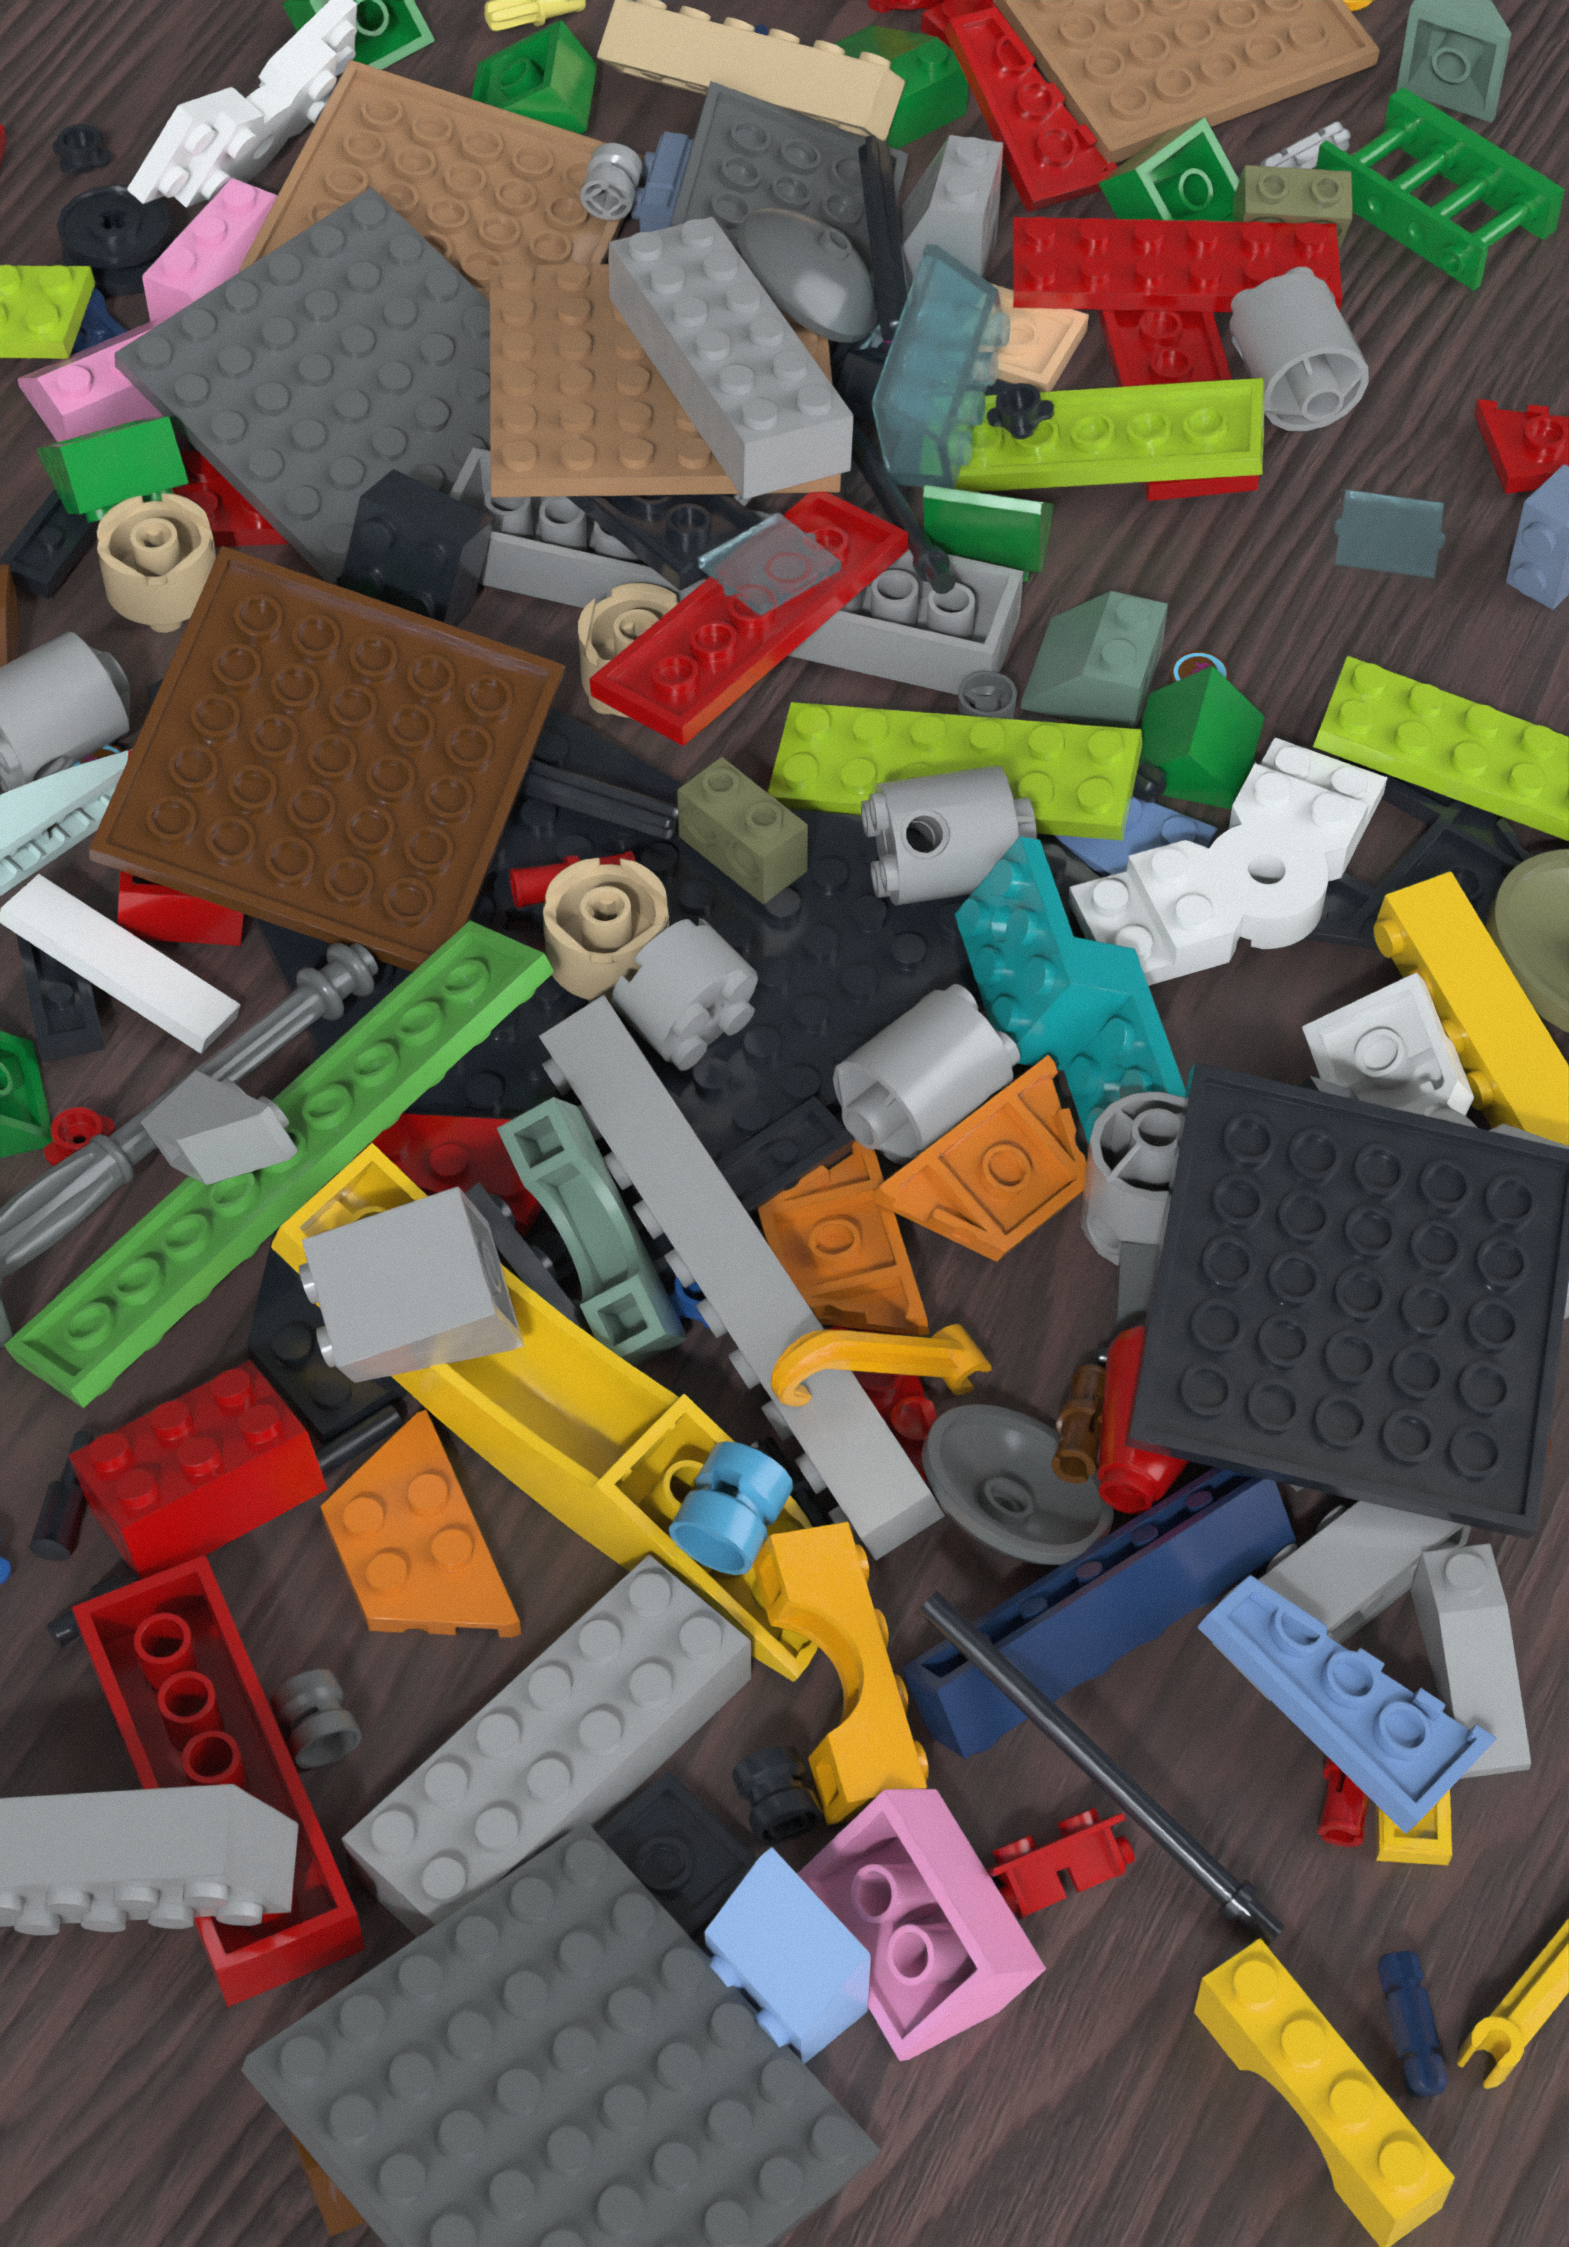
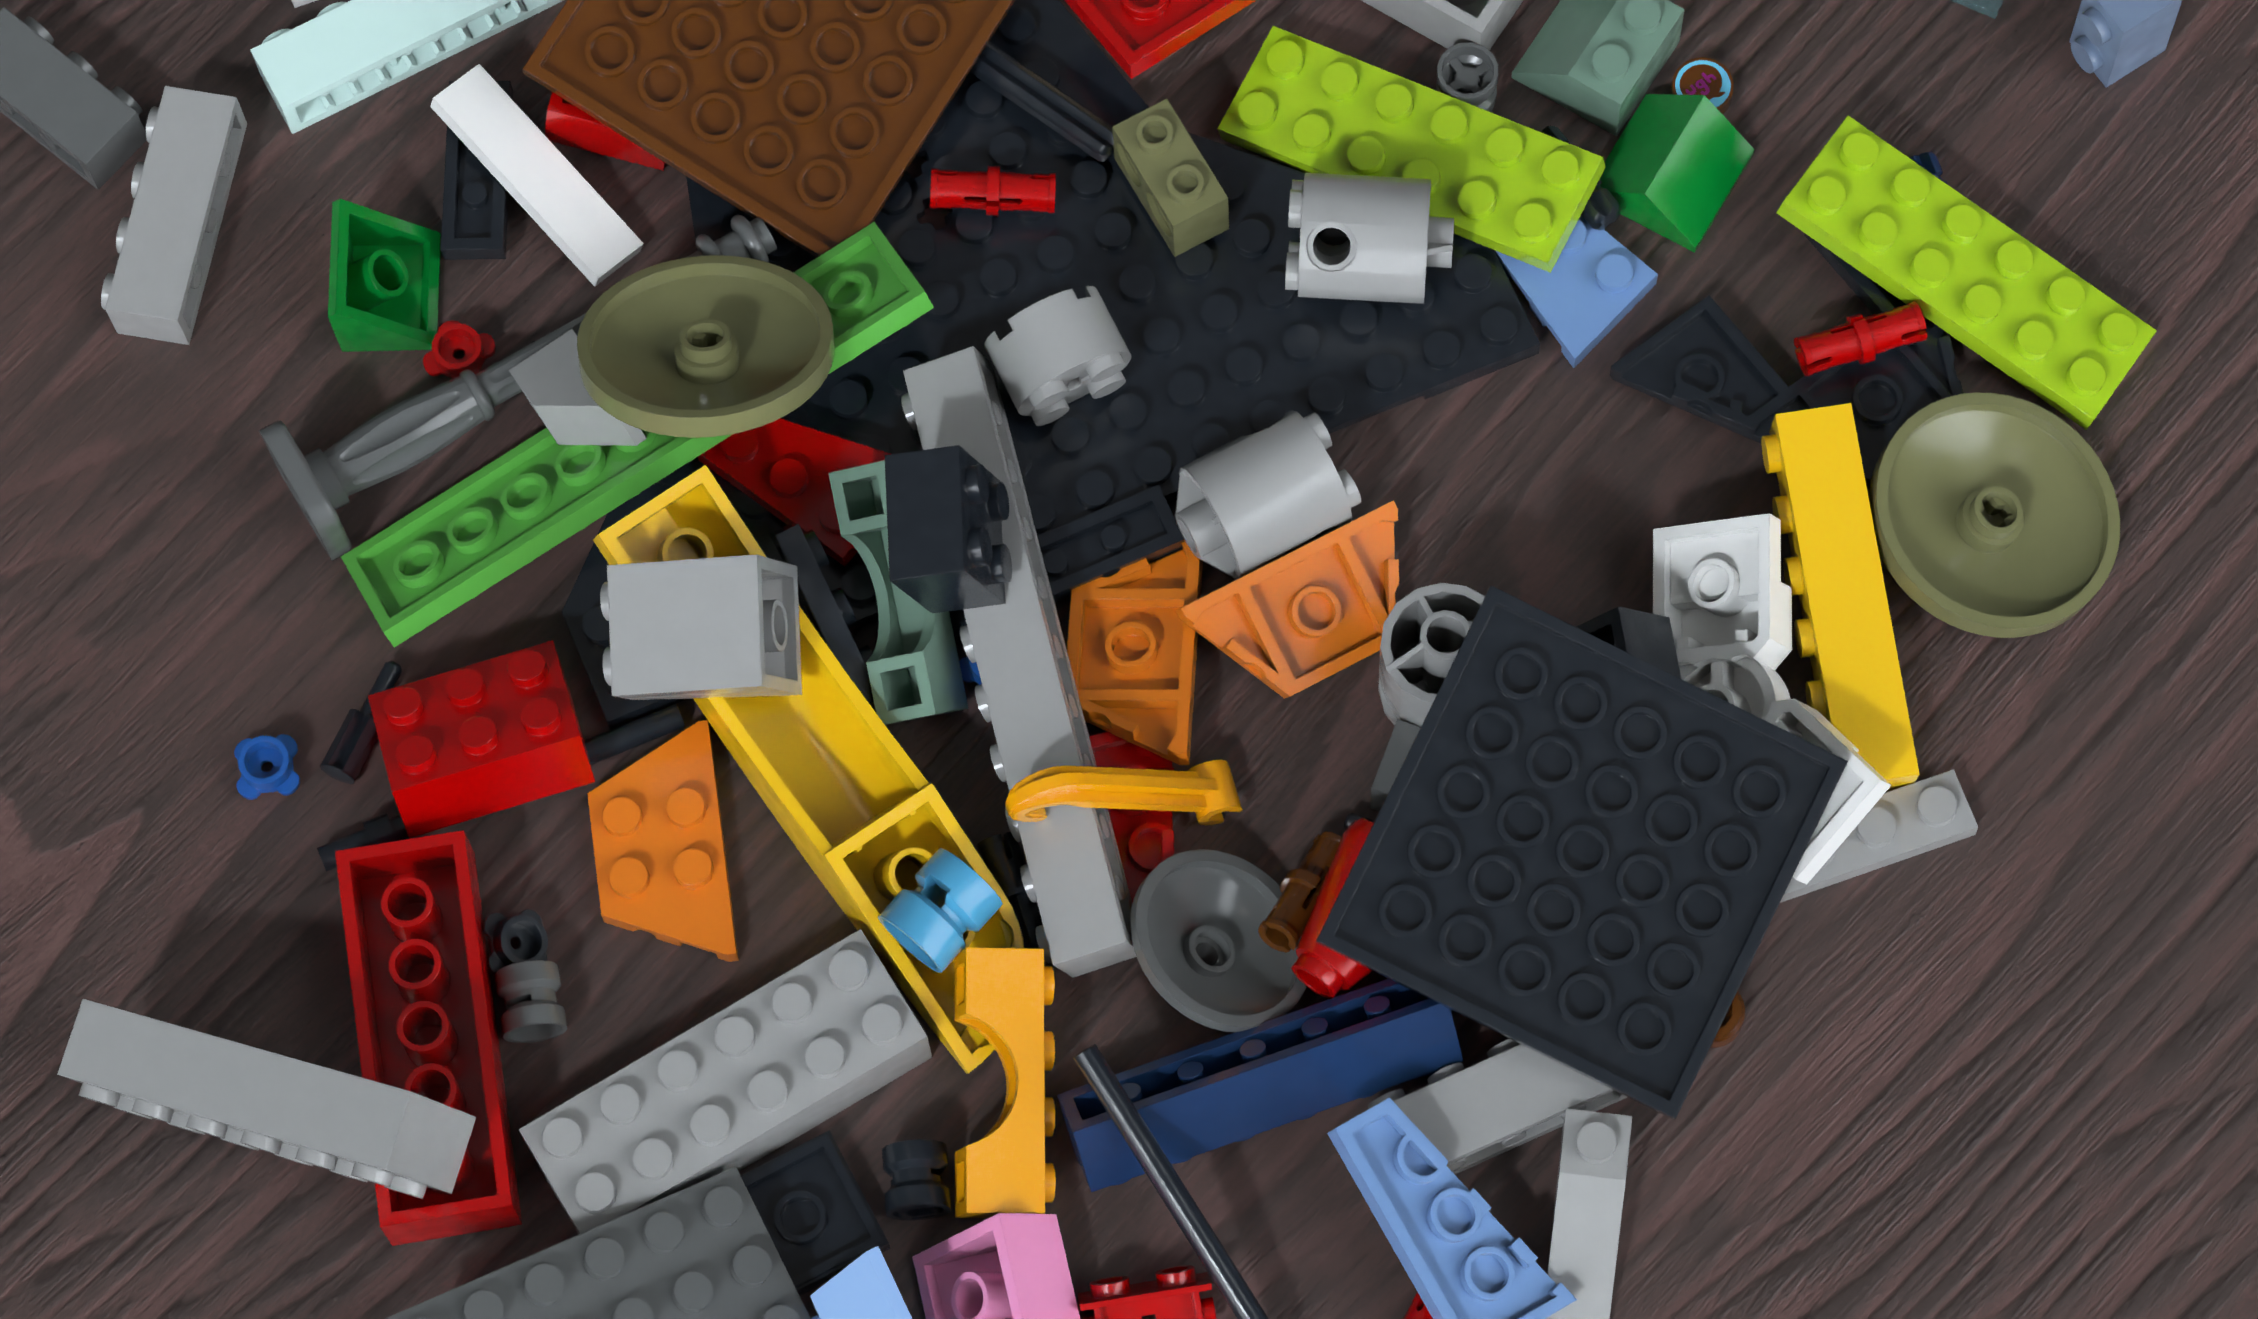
camera: 20 degrees right, 15 degrees up
(286, 1649) = (526, 928): none -> black plate
(340, 1043) = (705, 346): none -> olive dish
(599, 922) = (995, 230): tan brick -> none
(635, 1145) = (946, 529): none -> black brick
(1063, 992) = (1423, 447): teal bracket -> none
(1255, 882) = (1589, 364): white plate -> none
(1428, 832) = (1860, 338): none -> red pin

